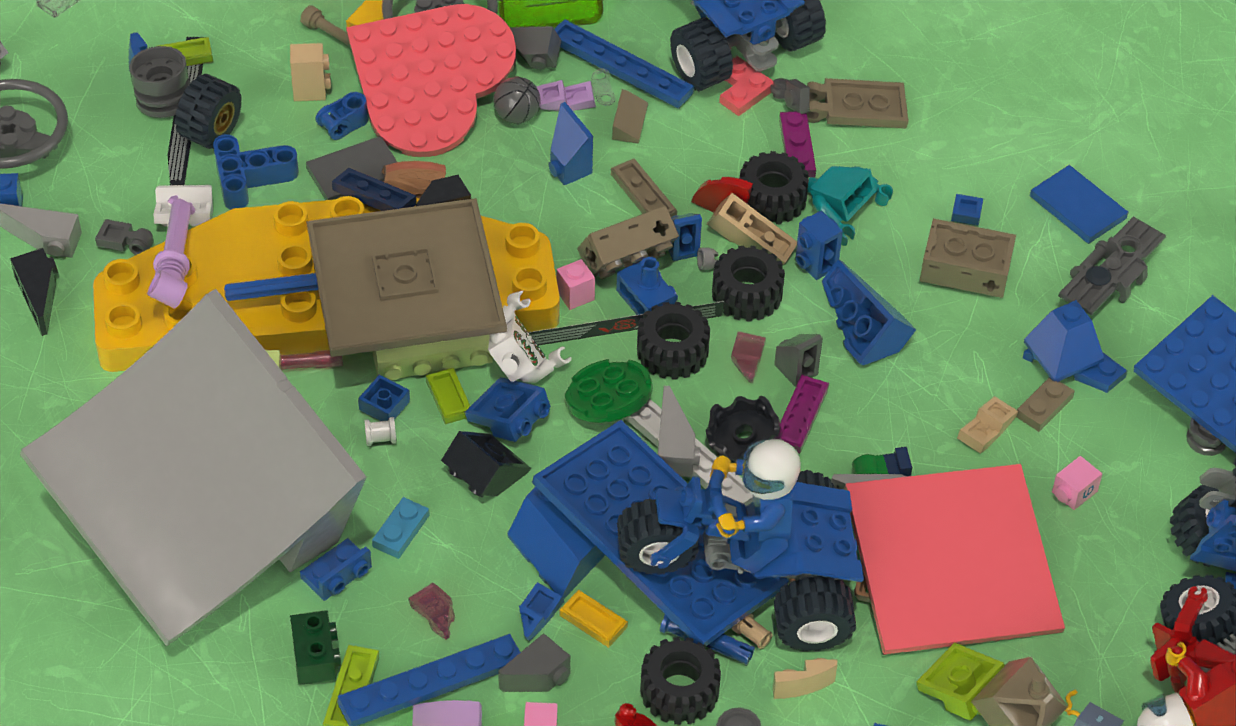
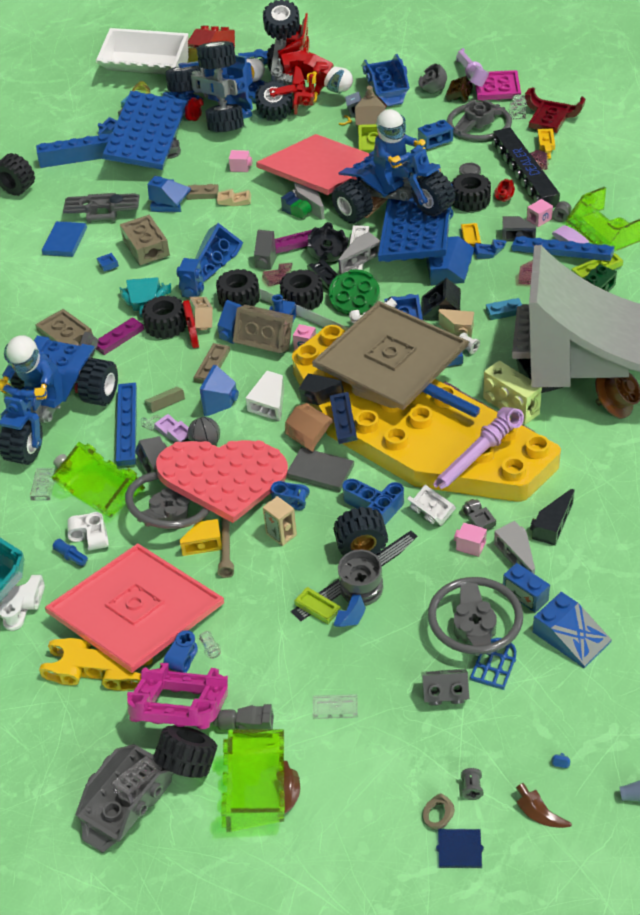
camera: 125 degrees left, 5 degrees down
(102, 203) = (470, 539): none -> bright pink brick
(423, 448) = (457, 321): none -> tan slope
(515, 193) = (267, 396): none -> white slope
(690, 394) = (326, 273): none -> black plate

